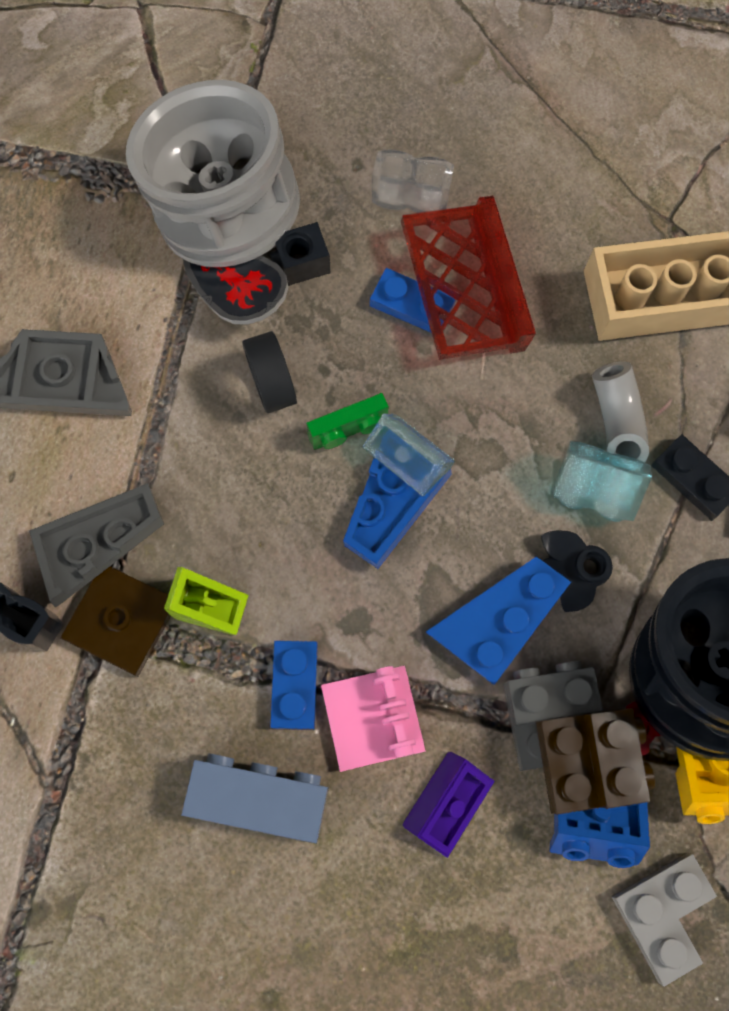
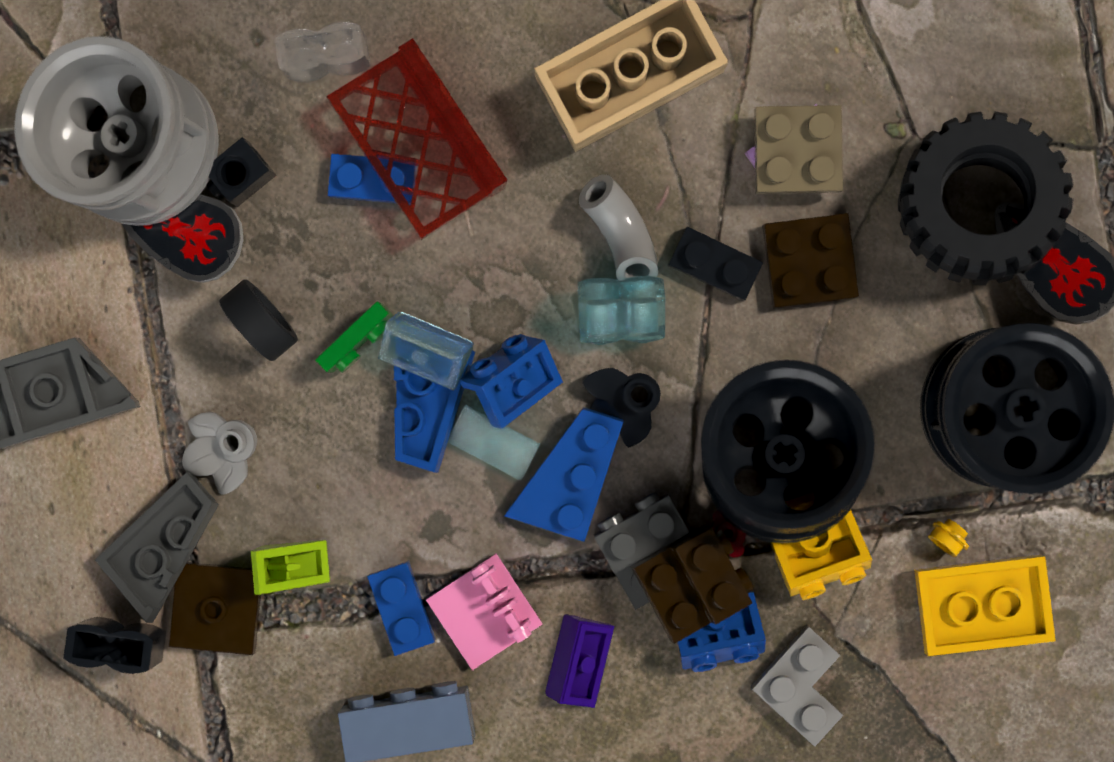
camera: 15 degrees left, 15 degrees up
(180, 478) = (214, 452): none -> light grey plate
(440, 560) = (498, 447): none -> clear light blue slope
(481, 506) = (513, 378): none -> blue bracket

